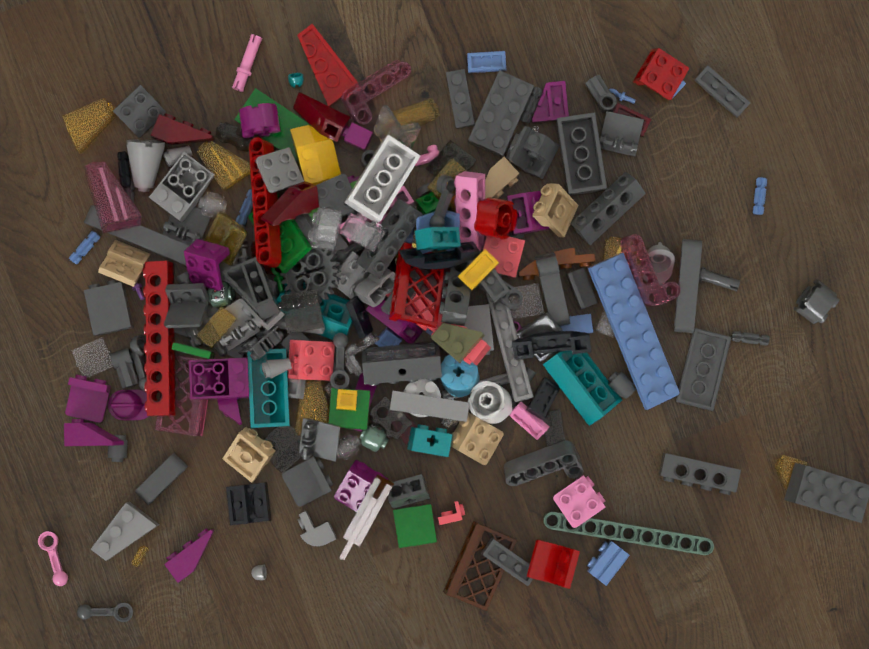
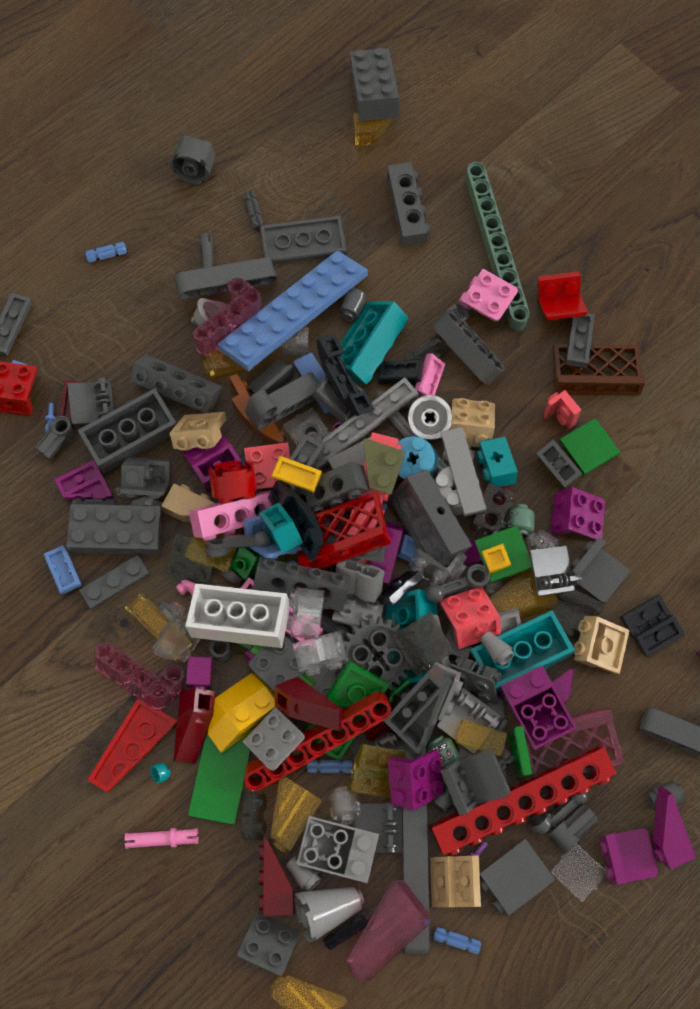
camera: 110 degrees left, 15 degrees down
(128, 405) = (610, 806): magenta piece -> none
(259, 120) = (224, 788): magenta brick -> none
(317, 535) = (649, 537): light grey brick -> none
(366, 513) = (609, 490): fence -> none
(607, 562) = (534, 252): medium blue brick -> none

